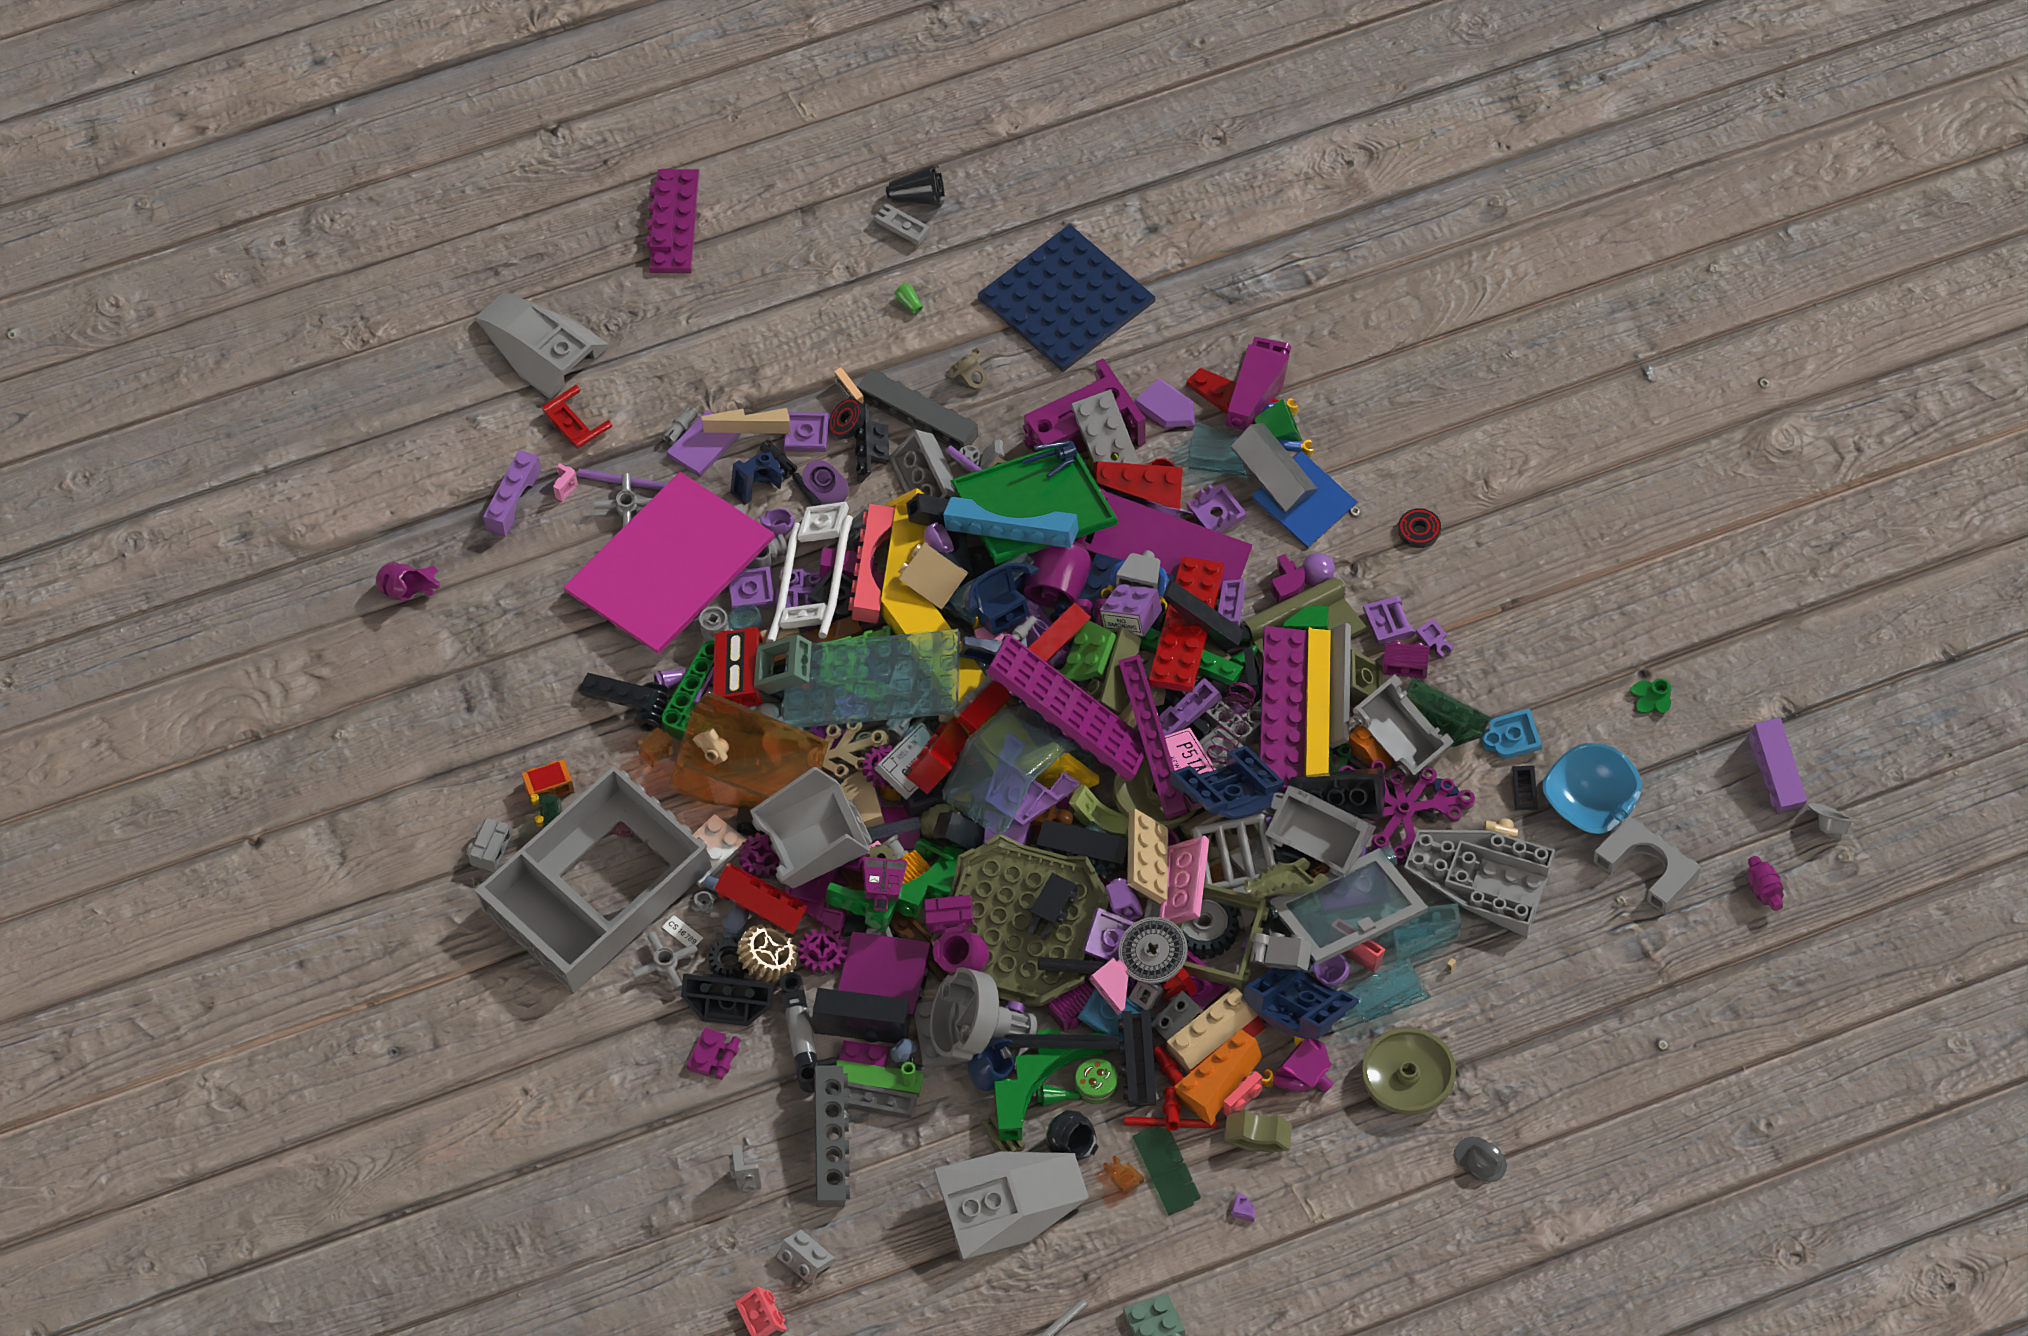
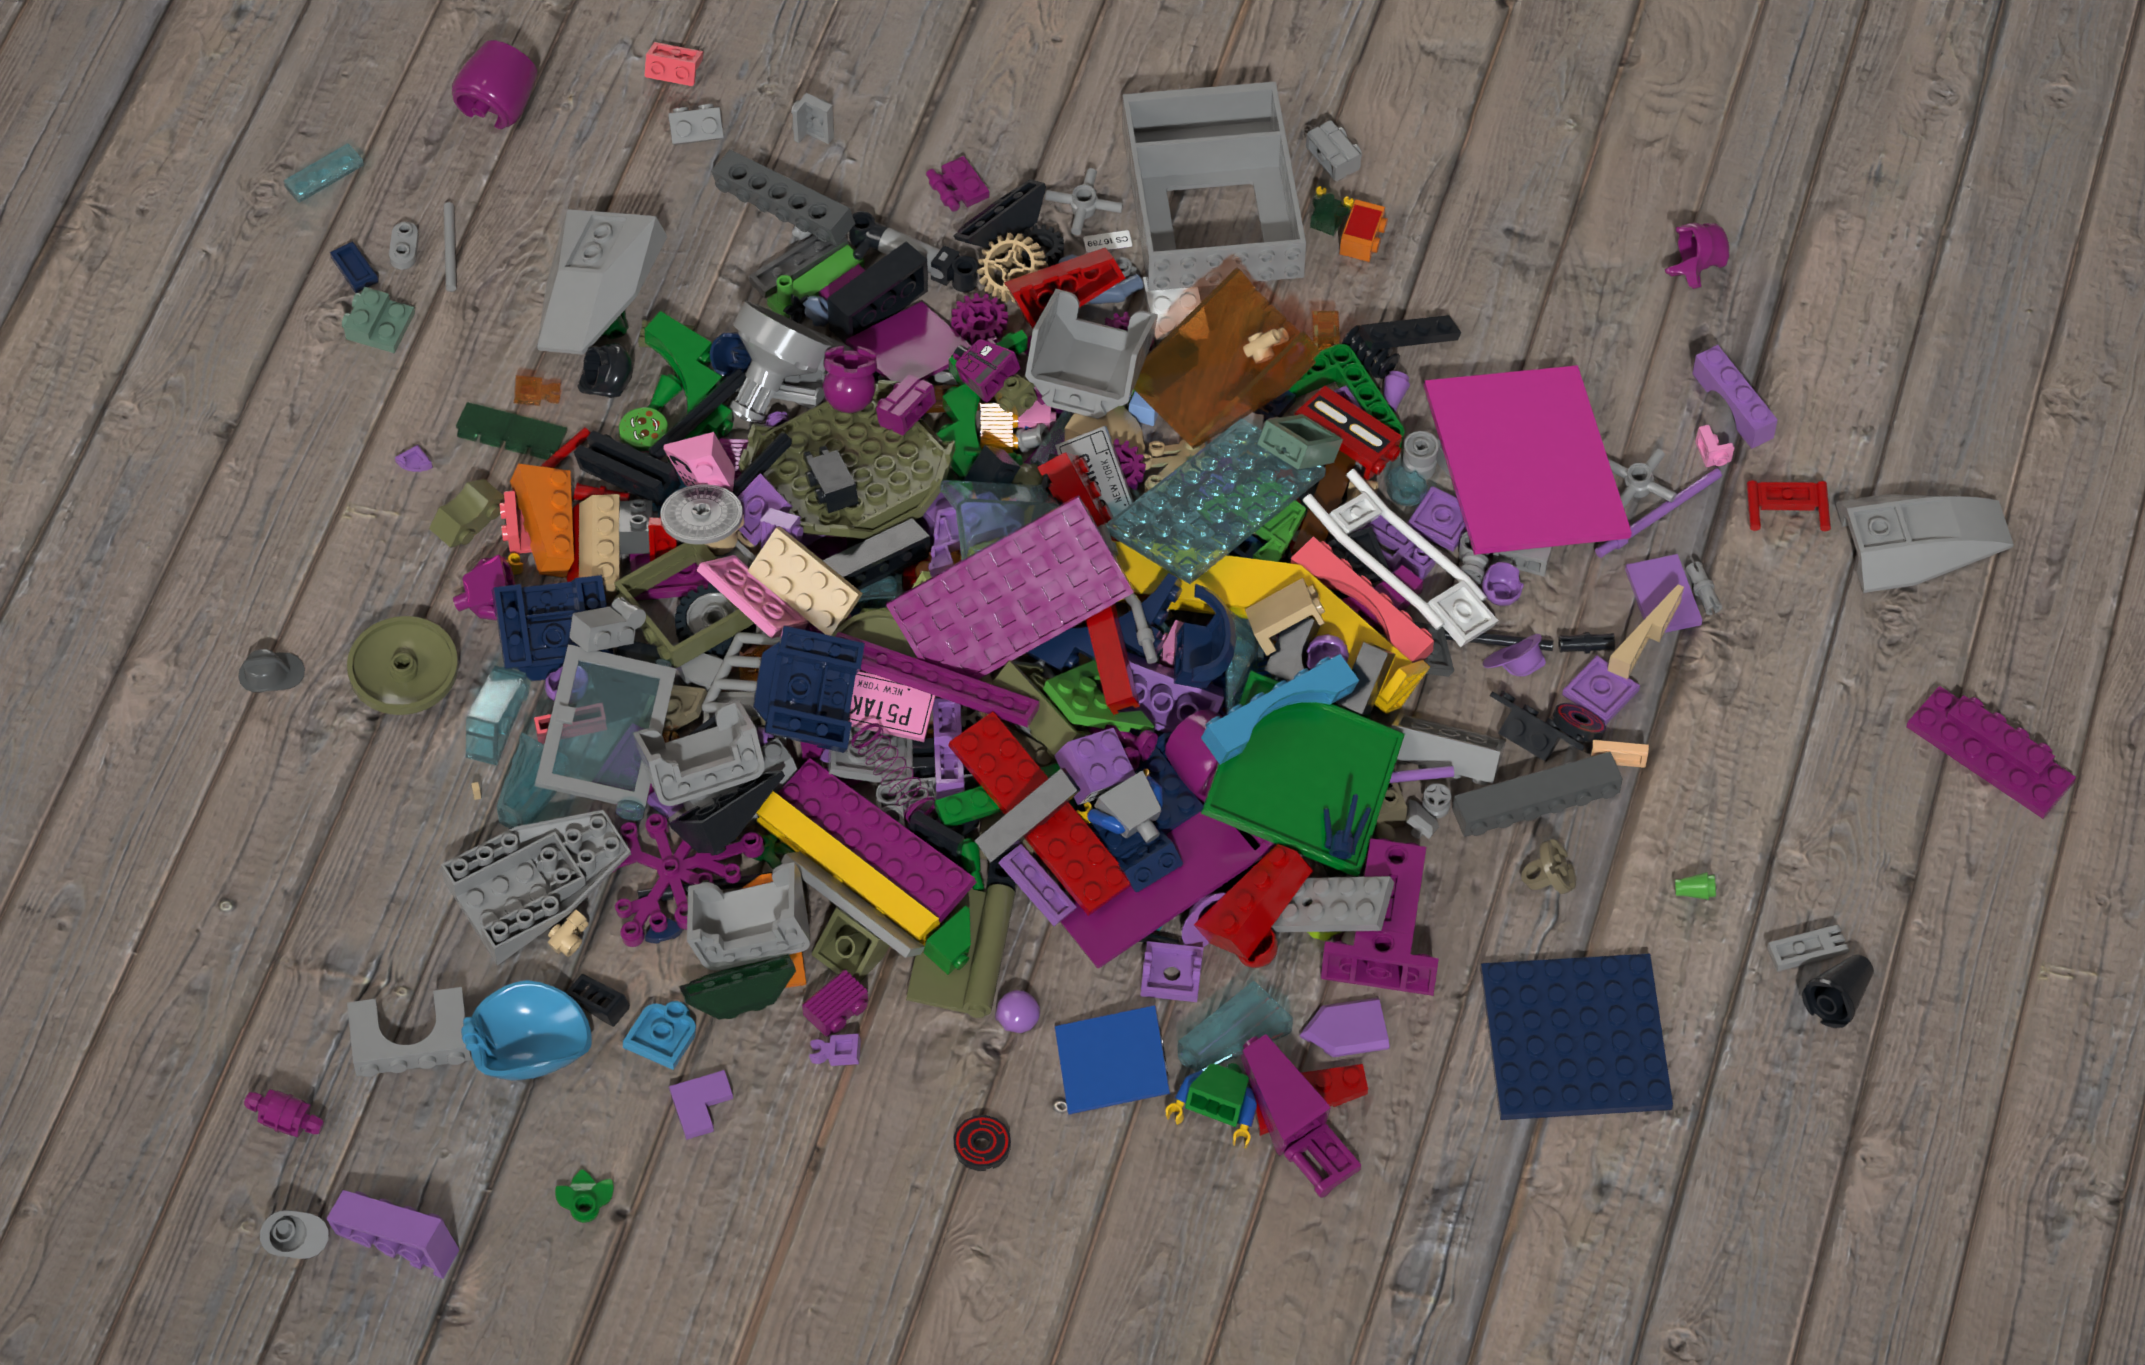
camera: 125 degrees right, 0 degrees up
(759, 468) = (1575, 583): dark blue tile -> none
(1170, 557) = (1149, 862): none -> dark blue bracket
(1171, 1108) = (551, 460): red pin -> none
(1273, 467) = (1164, 1042): dark grey slope -> none
(1284, 880) = (676, 685): olive animal -> none
(1290, 582) = (1020, 971): magenta brick -> none
(1382, 622) = (899, 1018): medium lavender plate -> none
(1537, 690) = (694, 1097): none -> medium lavender tile

